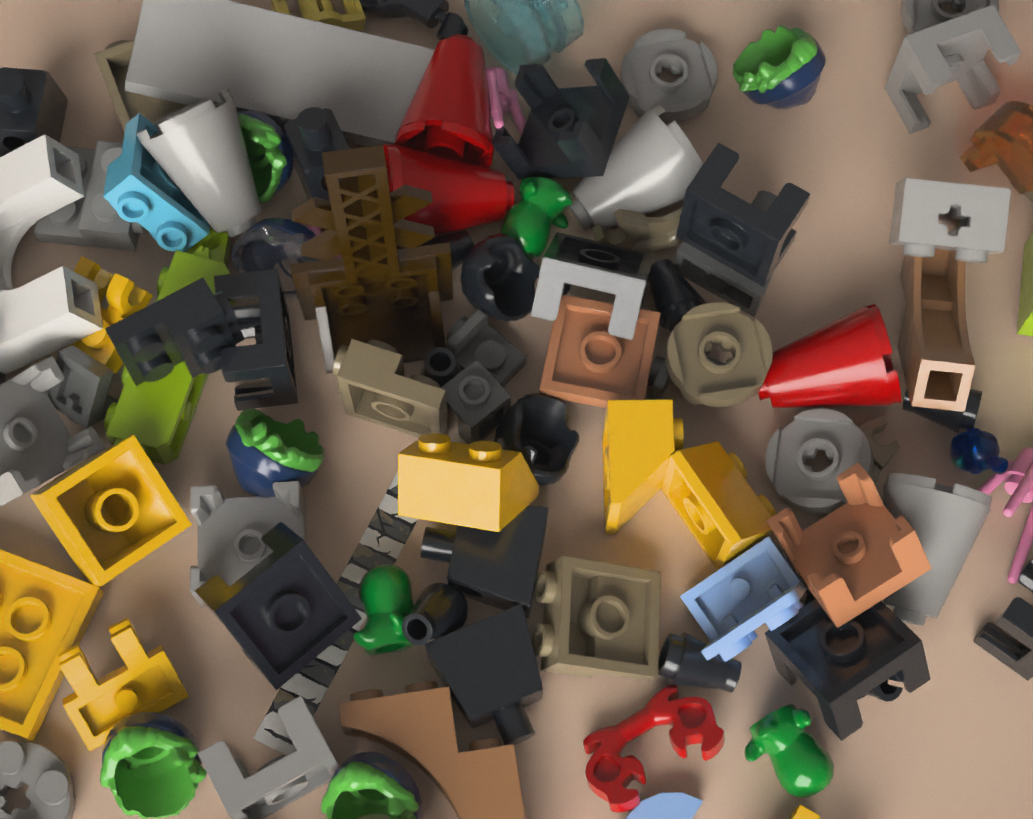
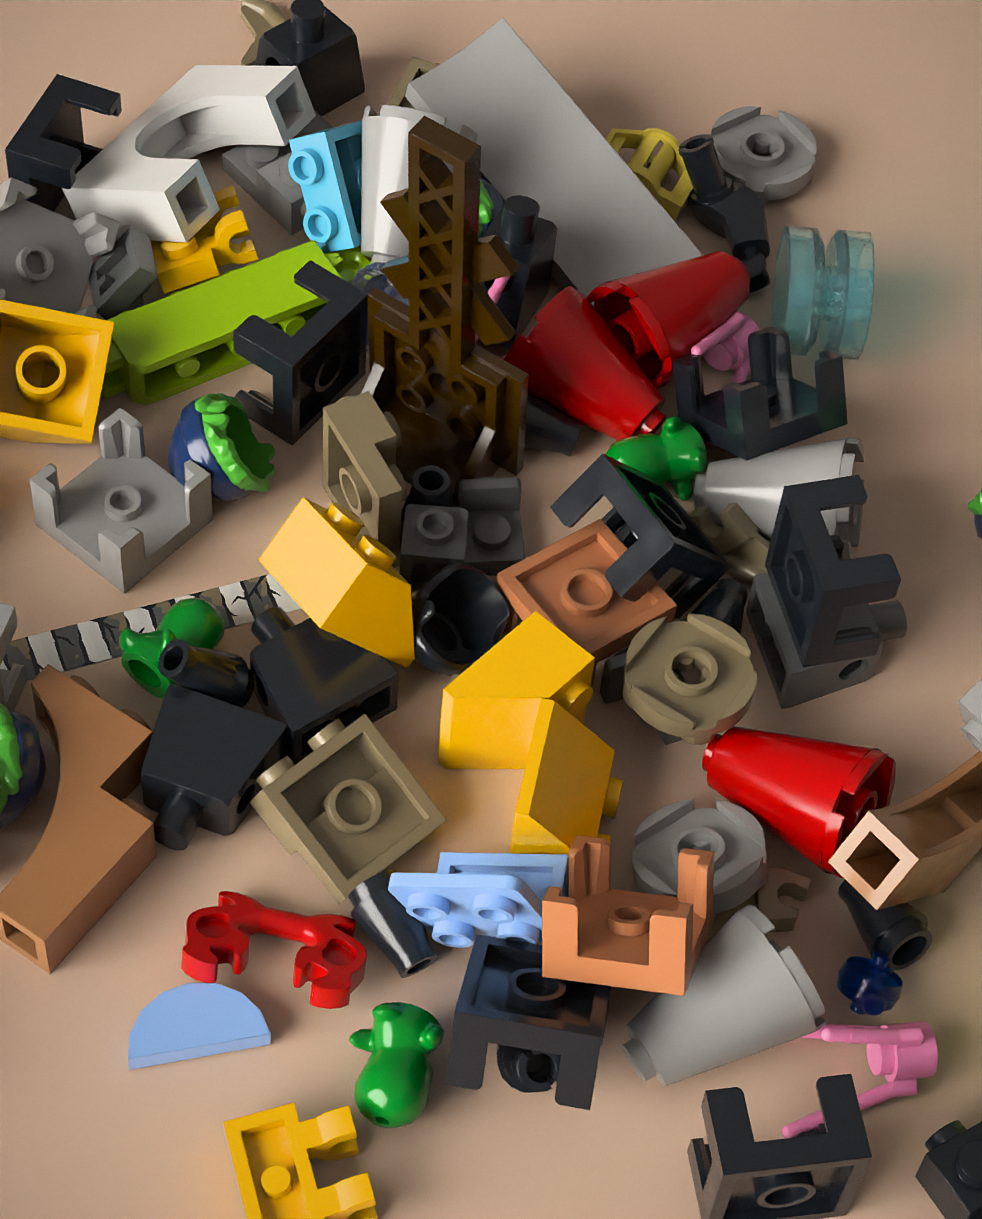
camera: 40 degrees right, 15 degrees down
(179, 328) = (227, 271): black plate -> none
(282, 607) = (84, 551): black panel -> none
(500, 278) = (555, 463): black hair -> none
(683, 56) = (909, 479): light grey plate -> none

